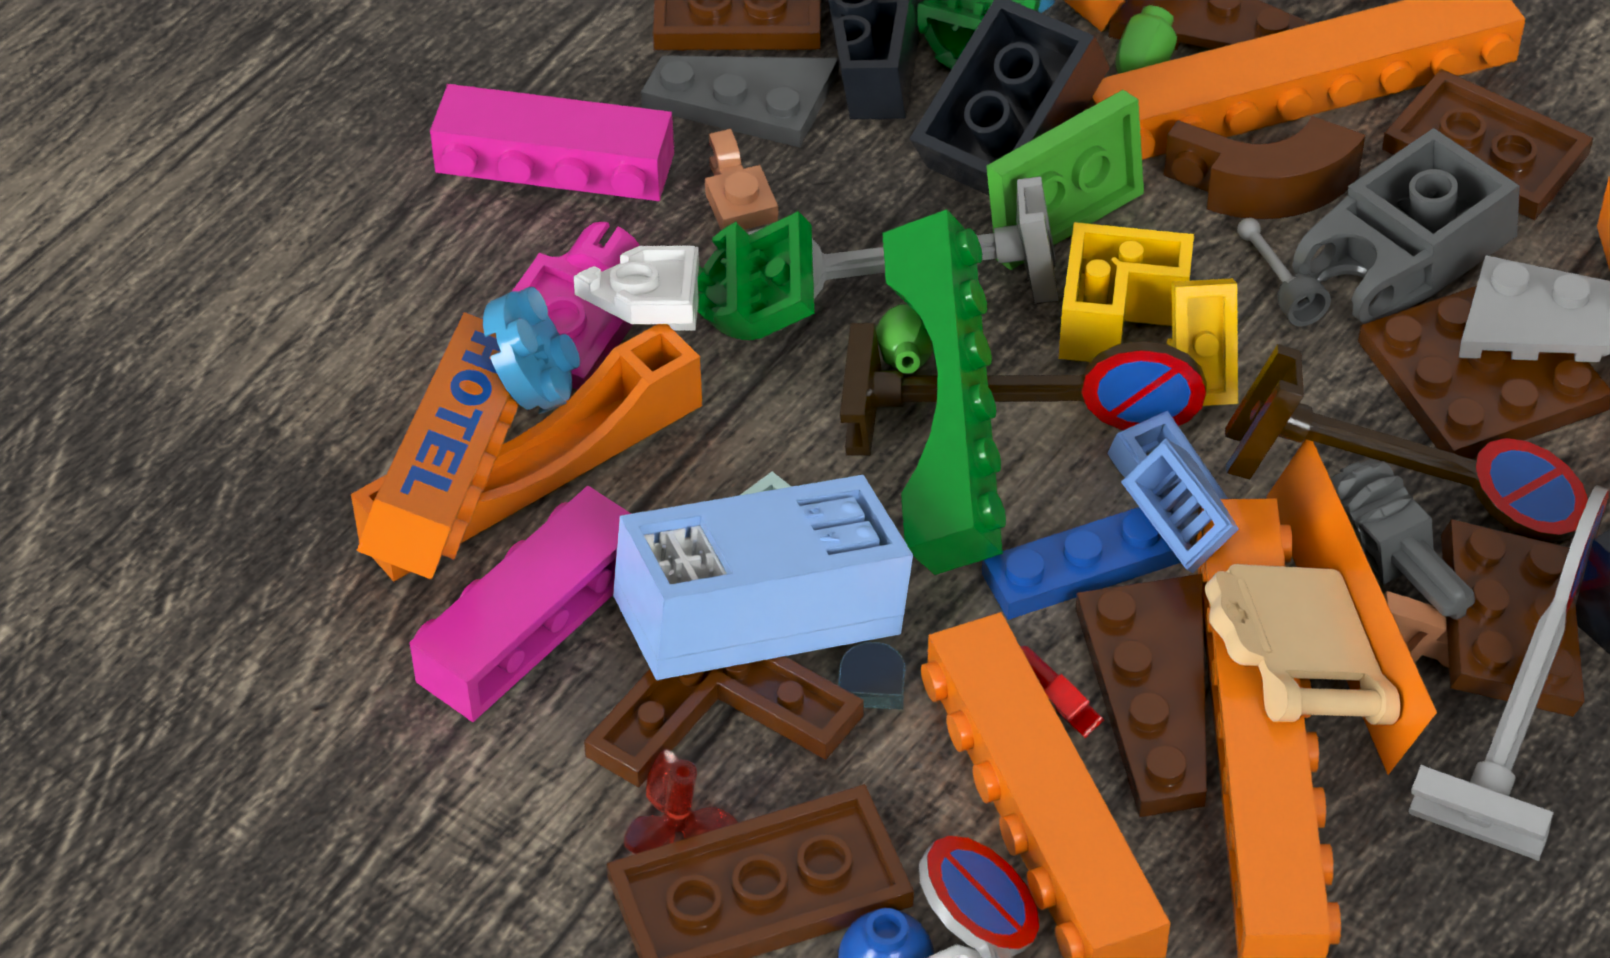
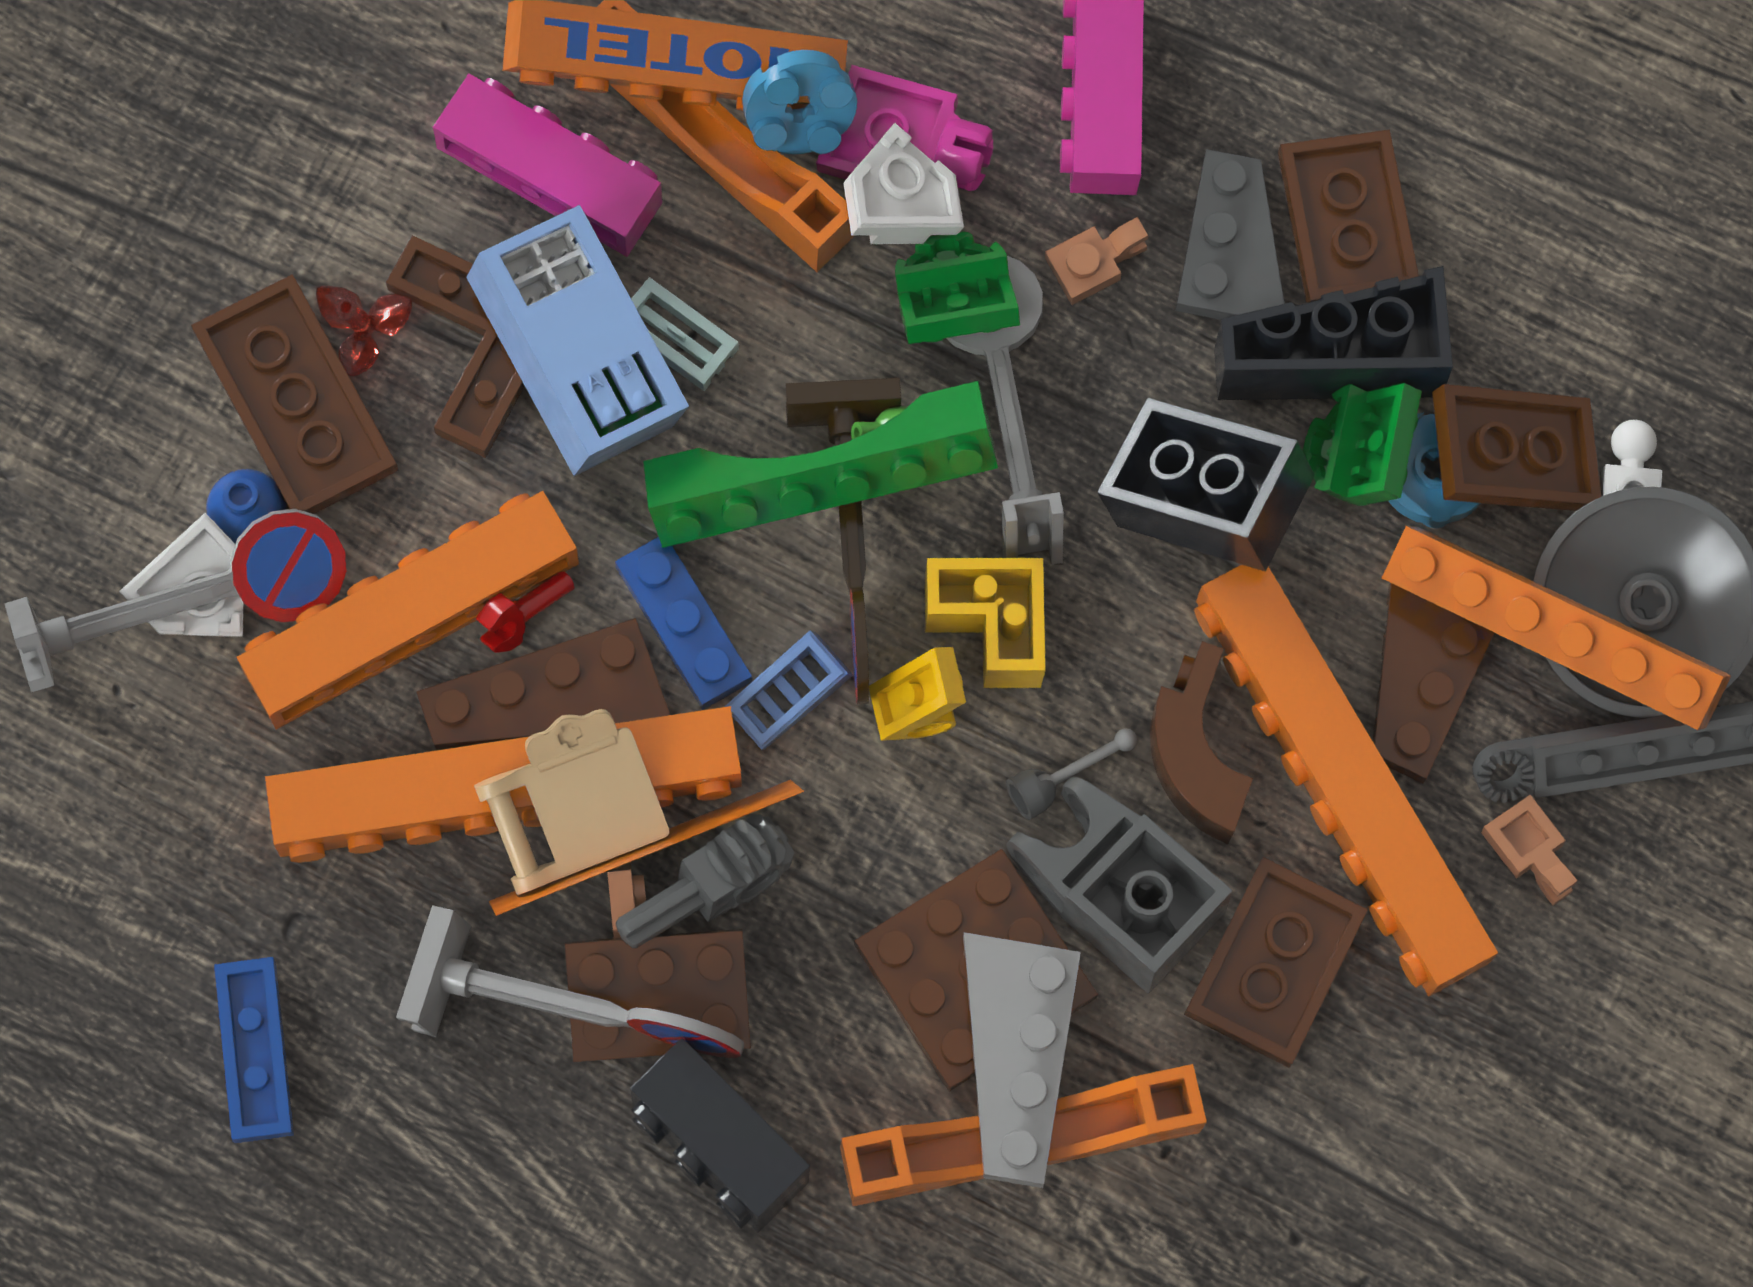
camera: 75 degrees right, 25 degrees up
(874, 674) = (526, 459): black tile -> none
(1084, 167) = (1125, 551): bright green plate -> none
(1146, 40) = (1346, 615): bright green plant -> none
(1153, 477) = (716, 687): medium blue slope -> none
(1511, 477) = (813, 1003): dark brown piece -> none

